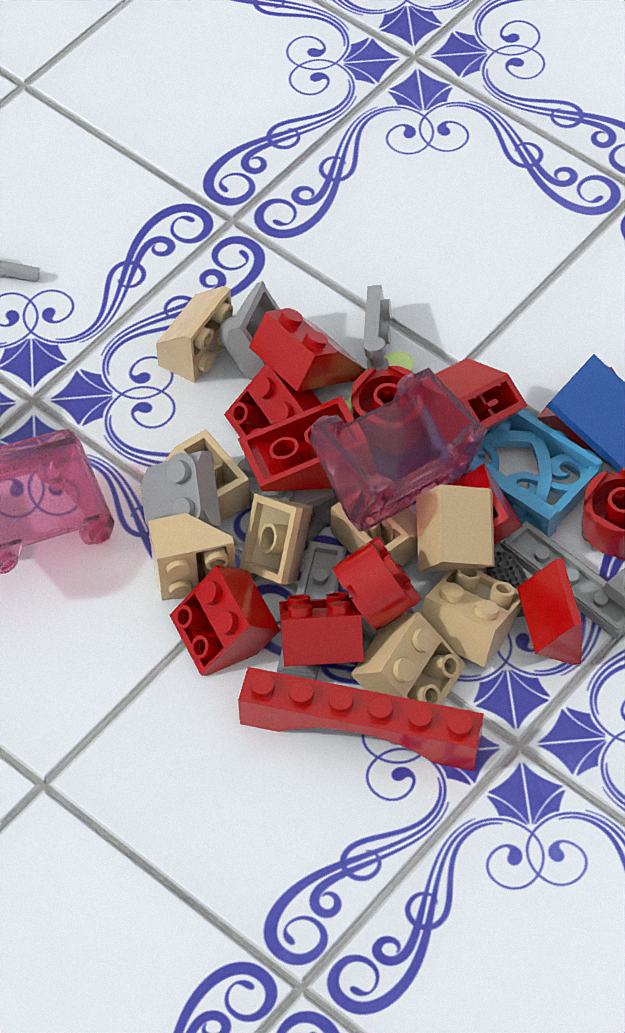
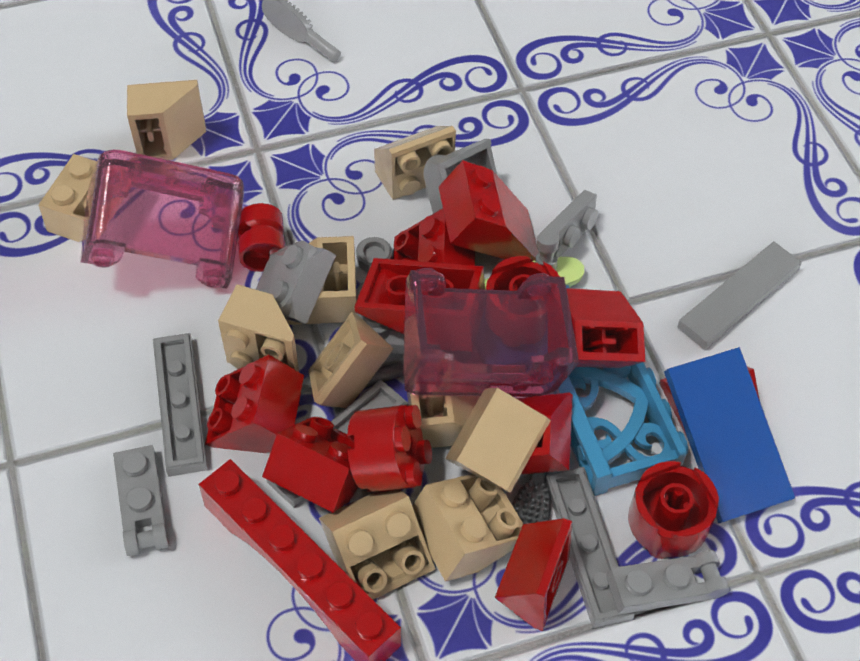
camera: 30 degrees right, 0 degrees up
(116, 475) = (259, 235): none -> red wheel
(152, 655) = (179, 405): none -> light grey tile
(184, 747) = (140, 499): none -> light grey plate
(224, 434) = (372, 248): none -> light grey tile
(551, 312) = (739, 295): none -> light grey tile

